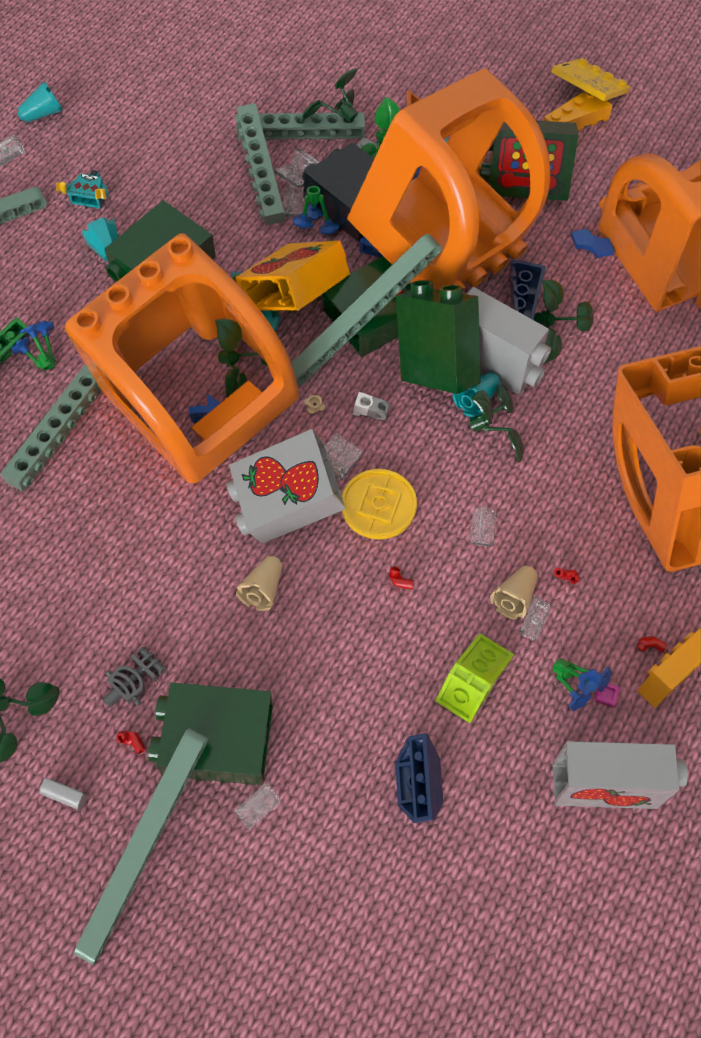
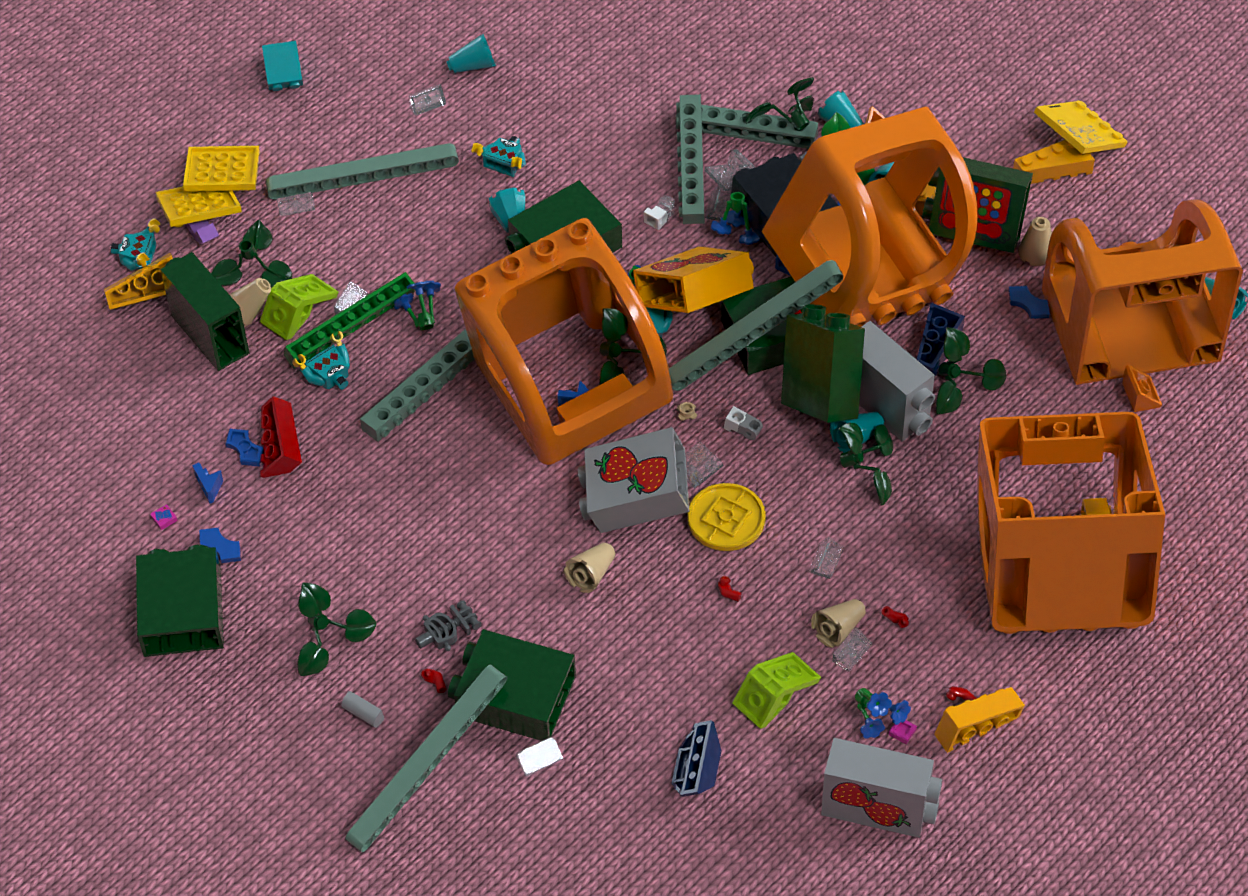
camera: 15 degrees right, 10 degrees down
(243, 219) = (660, 213): none -> white leg
(375, 97) = (841, 104): none -> teal cone
(586, 187) = (1035, 242): none -> tan cone

